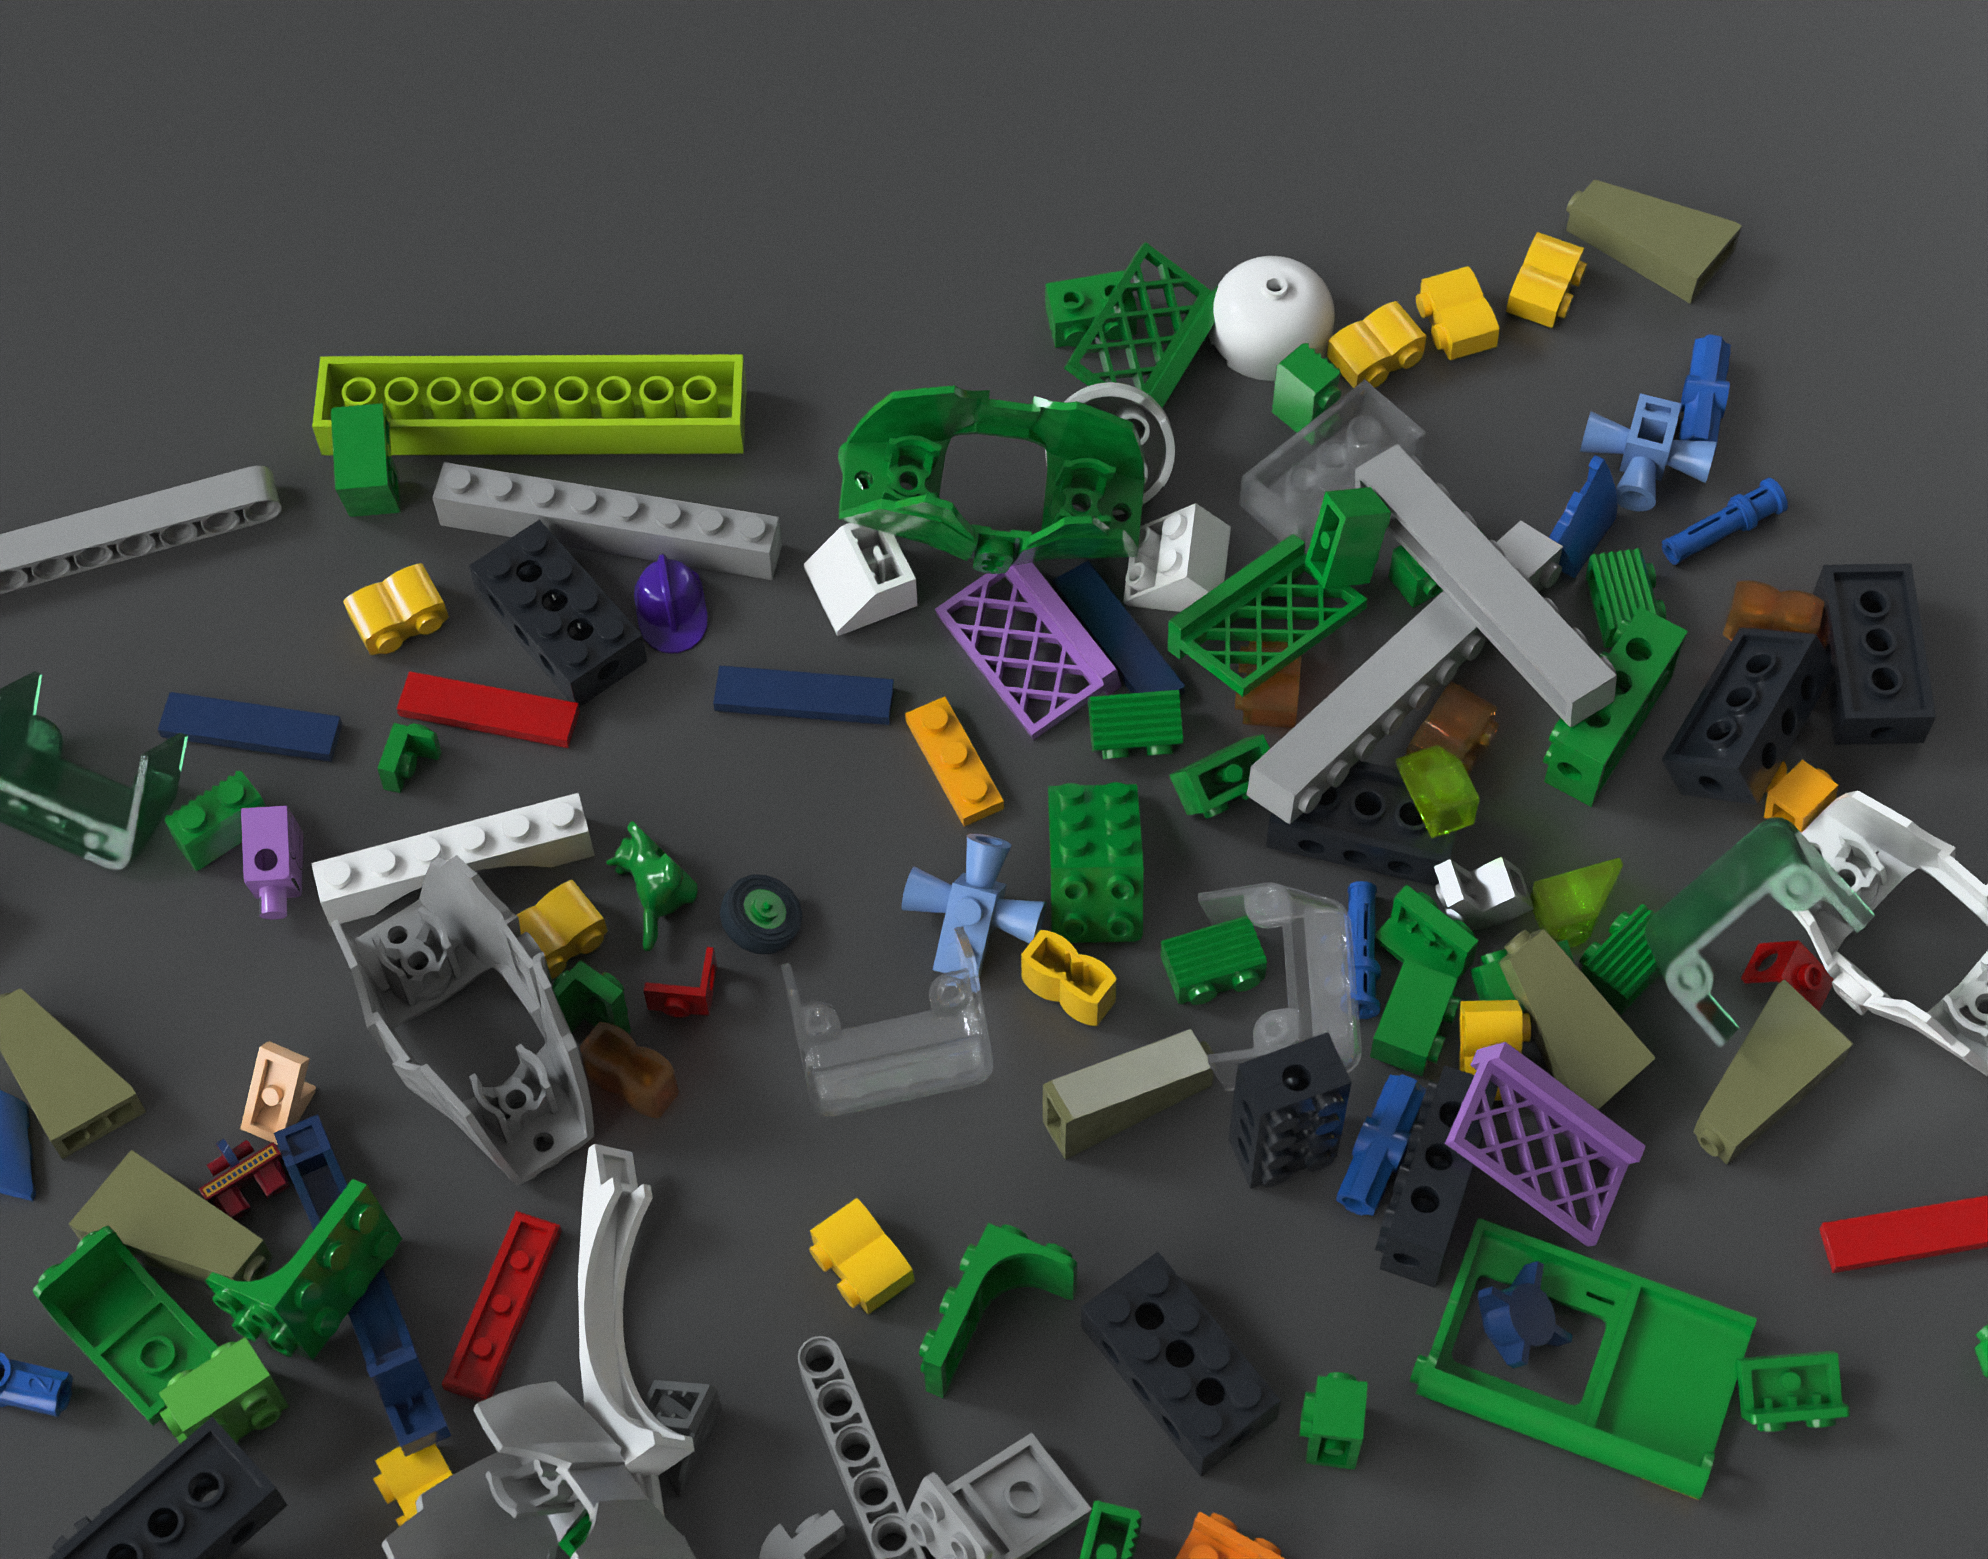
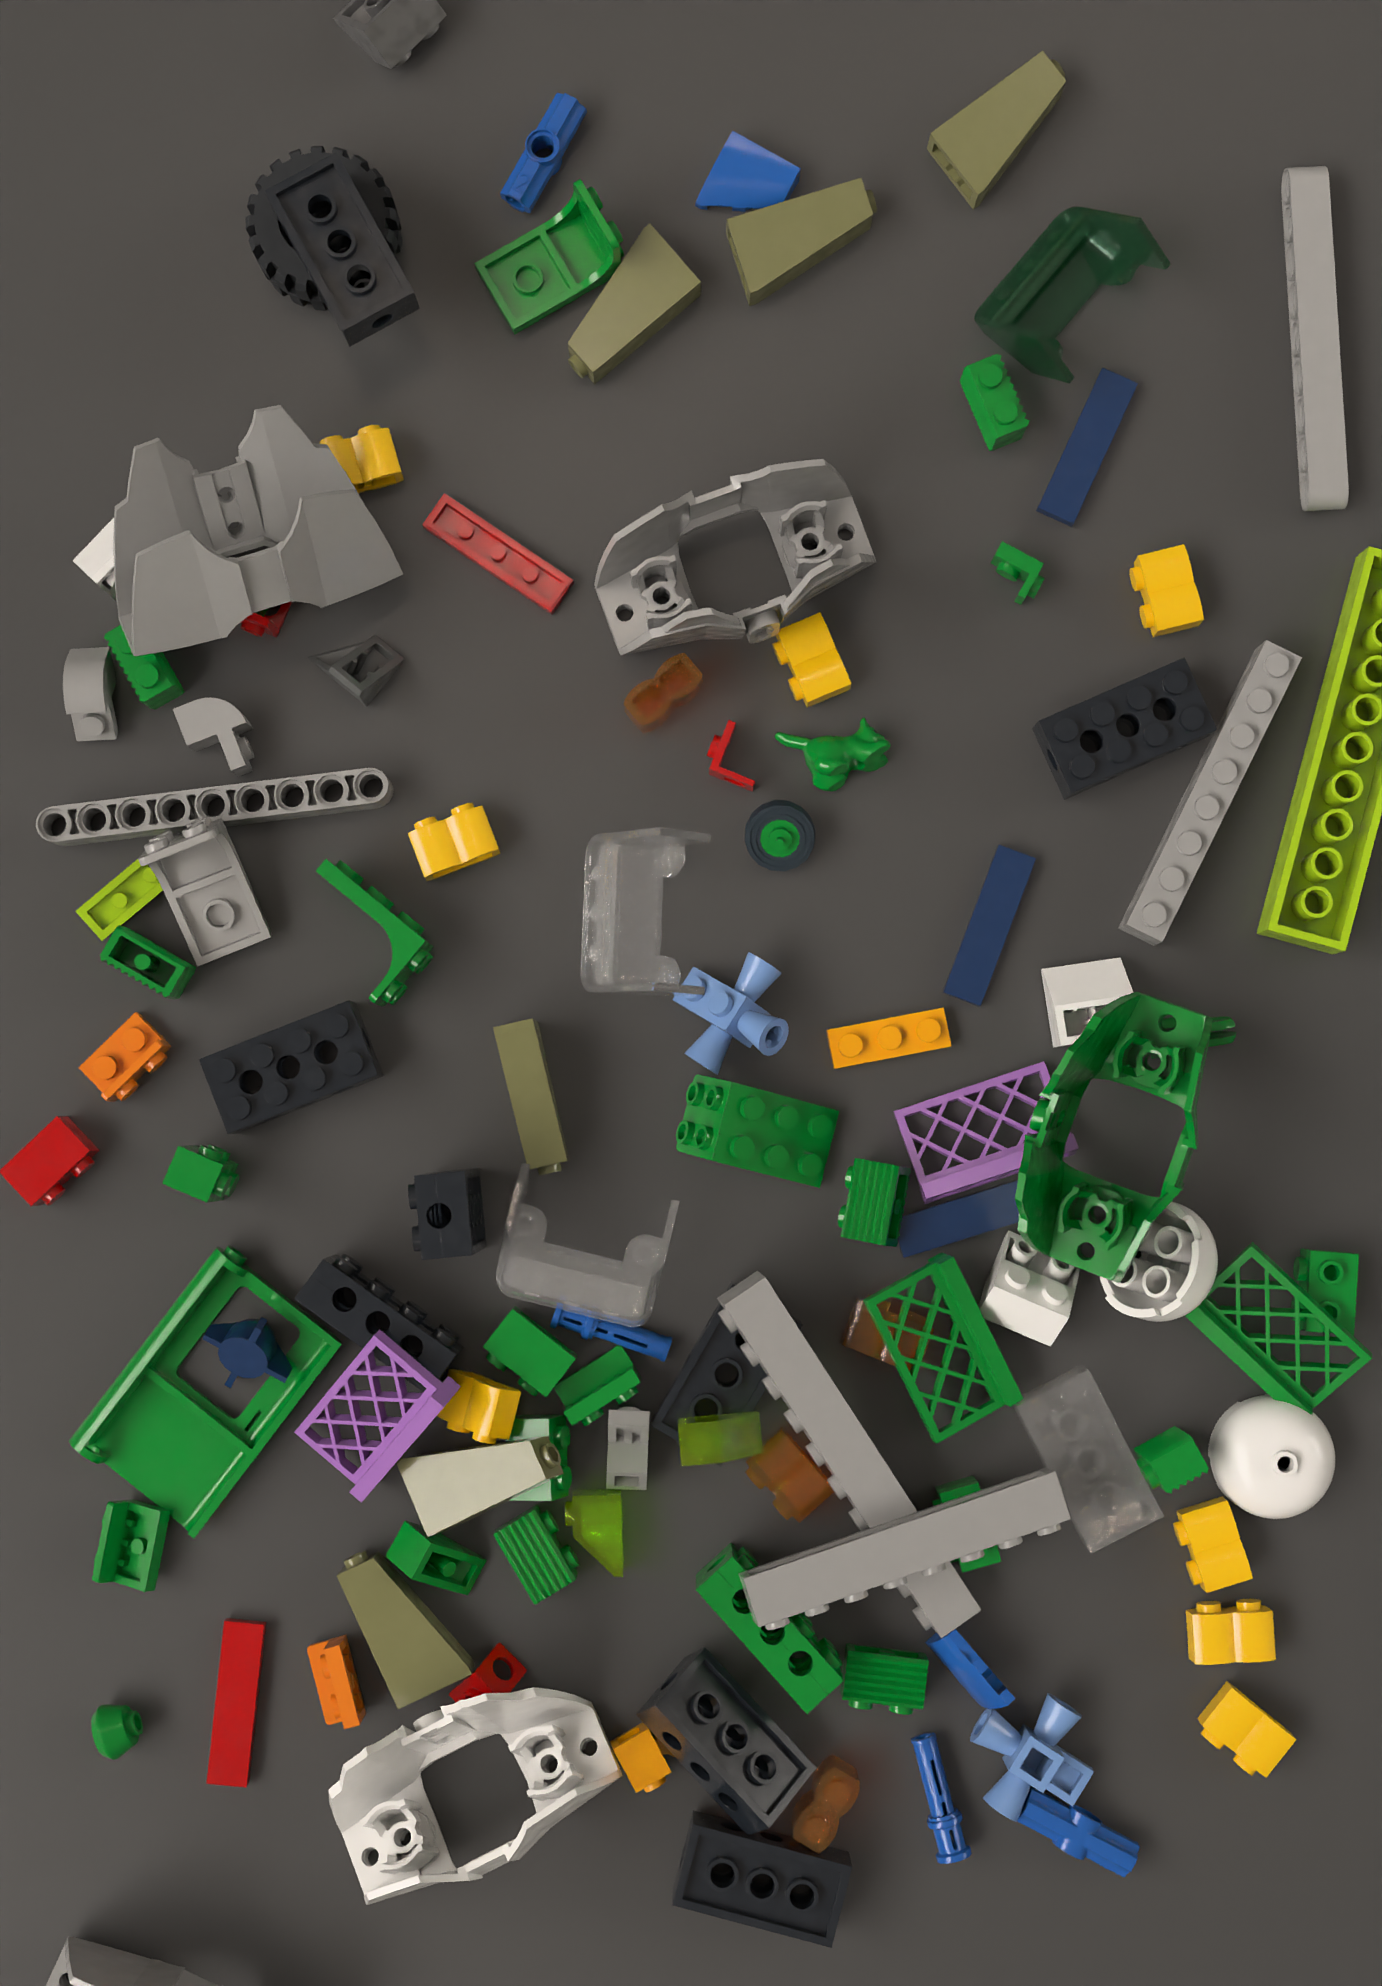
camera: 105 degrees right, 25 degrees up
(227, 1387) = (464, 309): bright green brick -> none
(261, 1167) = (652, 354): dark red hips -> none
(272, 858) = (940, 439): medium lavender torso -> none
(276, 1091) = (725, 408): light nougat slope -> none
(320, 1284) = (539, 411): green bracket -> none
(363, 460) = (1320, 584): green panel -> none
(374, 877) = (903, 590): white arch -> none
(375, 1315) = (473, 456): dark blue slope -> none
(488, 709) = (1048, 652): red tile -> none
(591, 997) = (728, 683): green bracket -> none
(609, 1226) = (386, 619): white slope -> none
(670, 606) = (1112, 832): dark purple piece -> none
(1062, 975) = (636, 1081): yellow brick -> none
(1214, 961) = (632, 1200): green brick -> none
(1218, 777) = (799, 1263): green brick -> none
(1347, 537) = (993, 1443): green brick -> none
(1381, 1145) = (431, 1288): blue piece -> none
(1653, 236) = (1268, 1850): olive slope -> none
(1678, 1062) = (435, 1559): none -> green slope
(1766, 860) = (528, 1652): clear green windscreen -> none
(1851, 1123) = (337, 1682): none -> orange bracket

